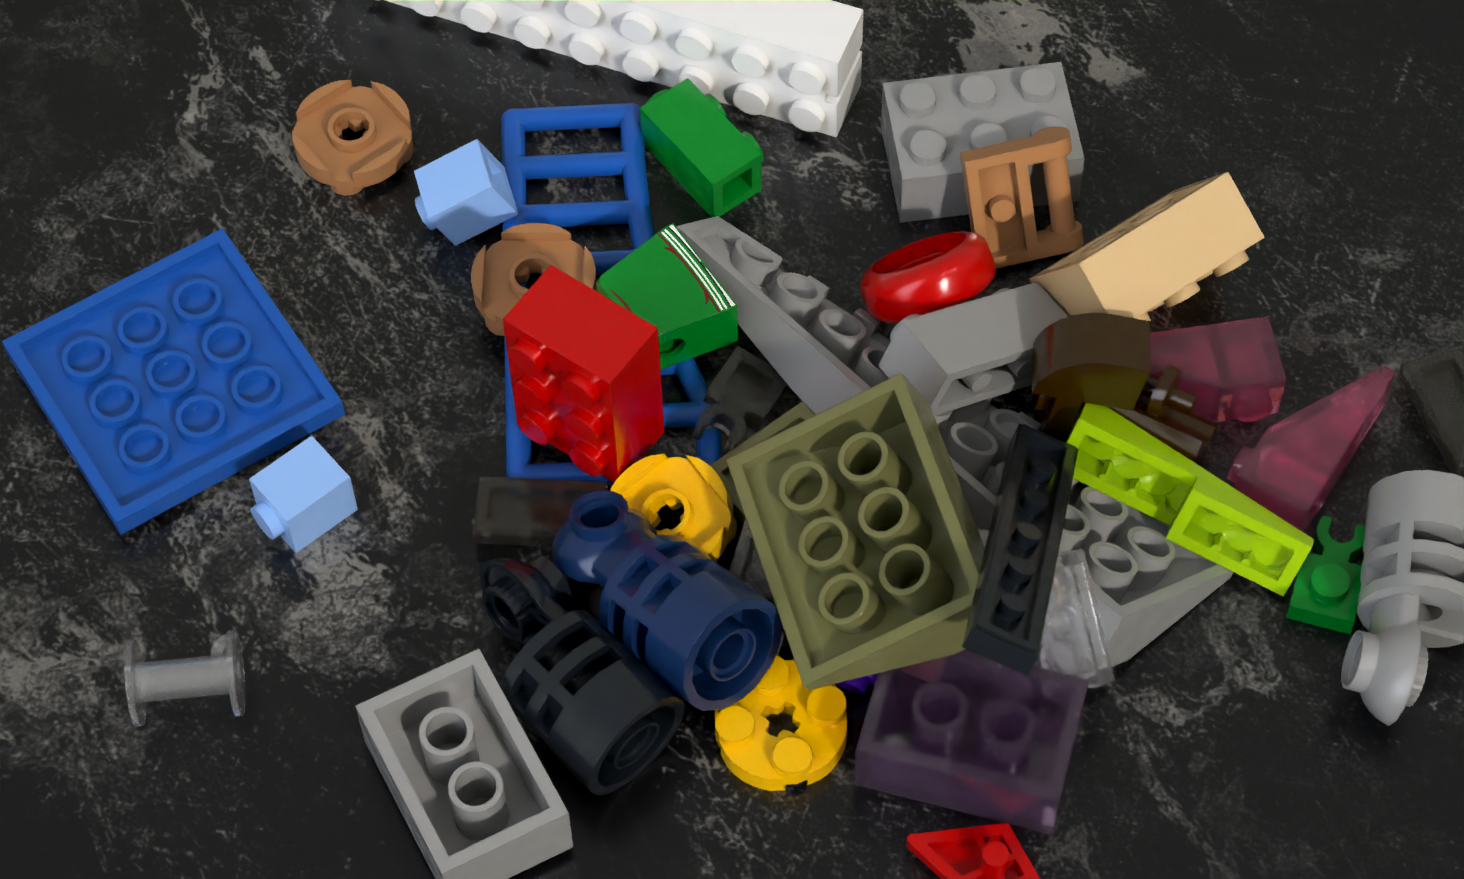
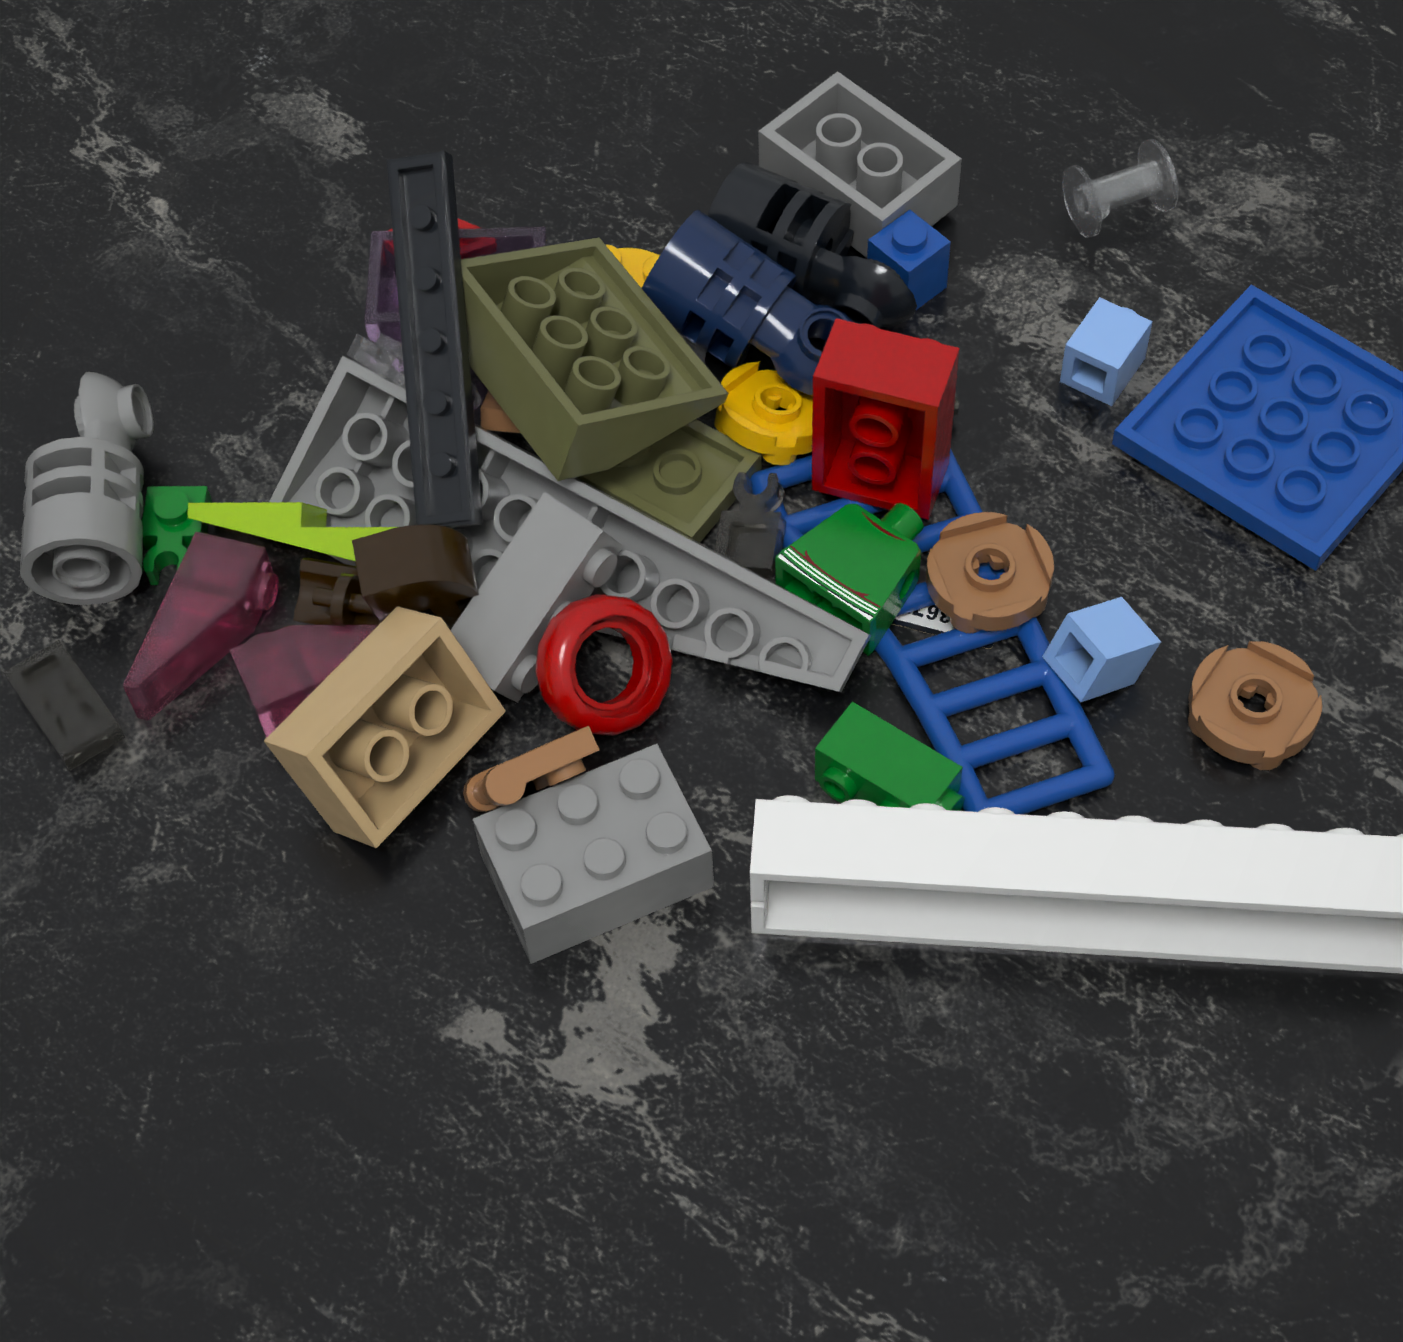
camera: 165 degrees right, 0 degrees up
(456, 631) = (915, 254): none -> blue brick

